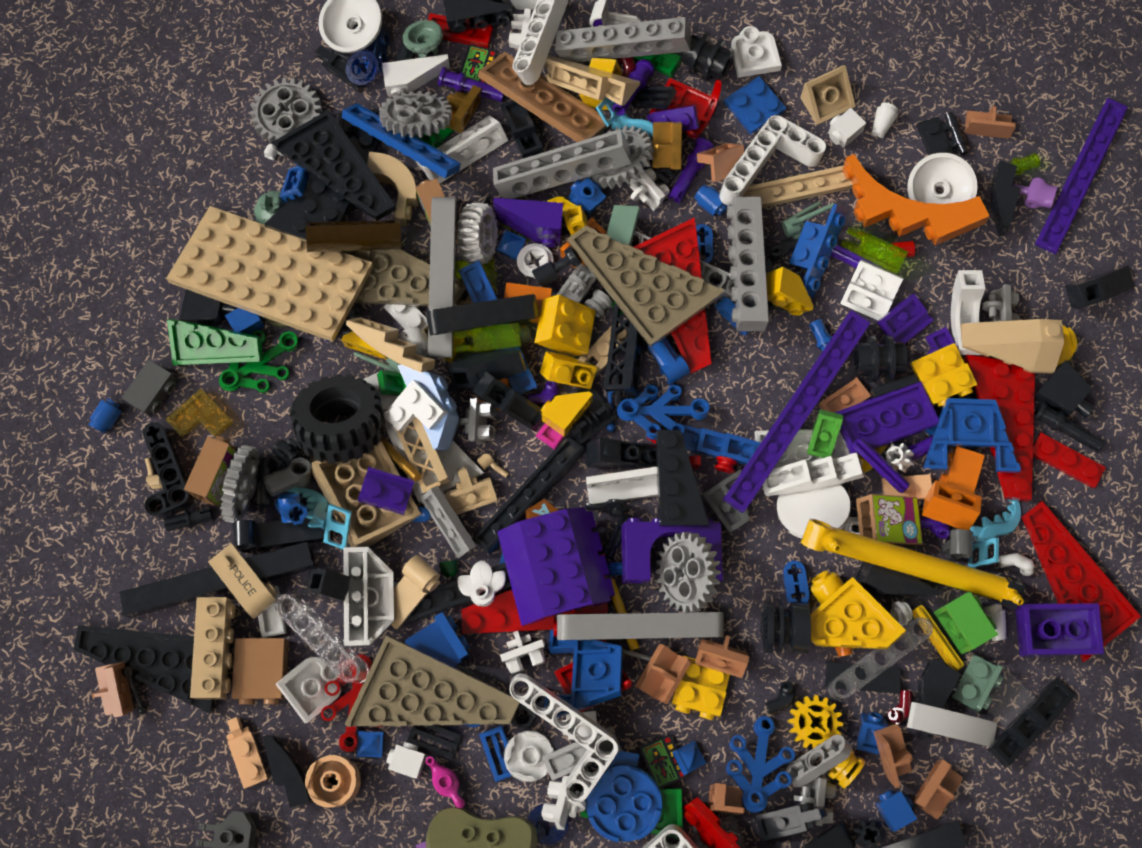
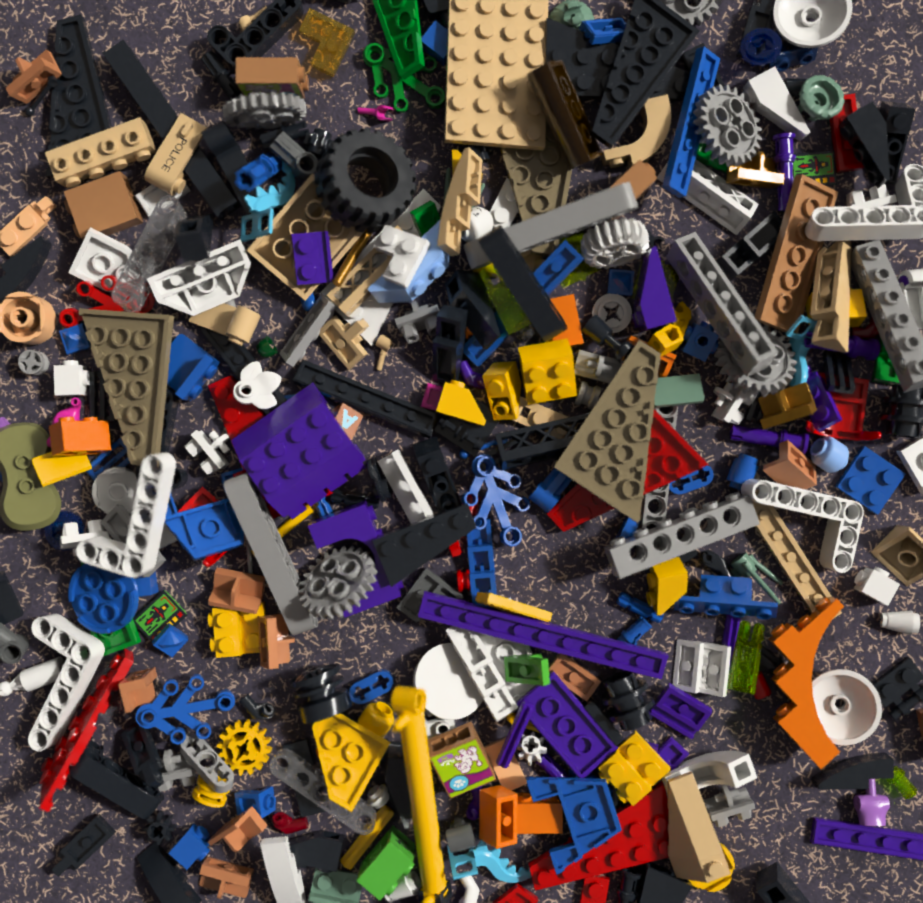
camera: 65 degrees right, 15 degrees up
(280, 394) = (379, 112): none -> dark pink hand
(372, 791) = (27, 361): none -> light grey wheel
(465, 766) = (79, 437): none -> orange brick
(483, 798) = (57, 468): none -> yellow slope
(721, 128) = (829, 454): none -> light blue head
(761, 427) = (512, 606): none -> yellow tile
(800, 324) = (638, 606): none -> blue axle

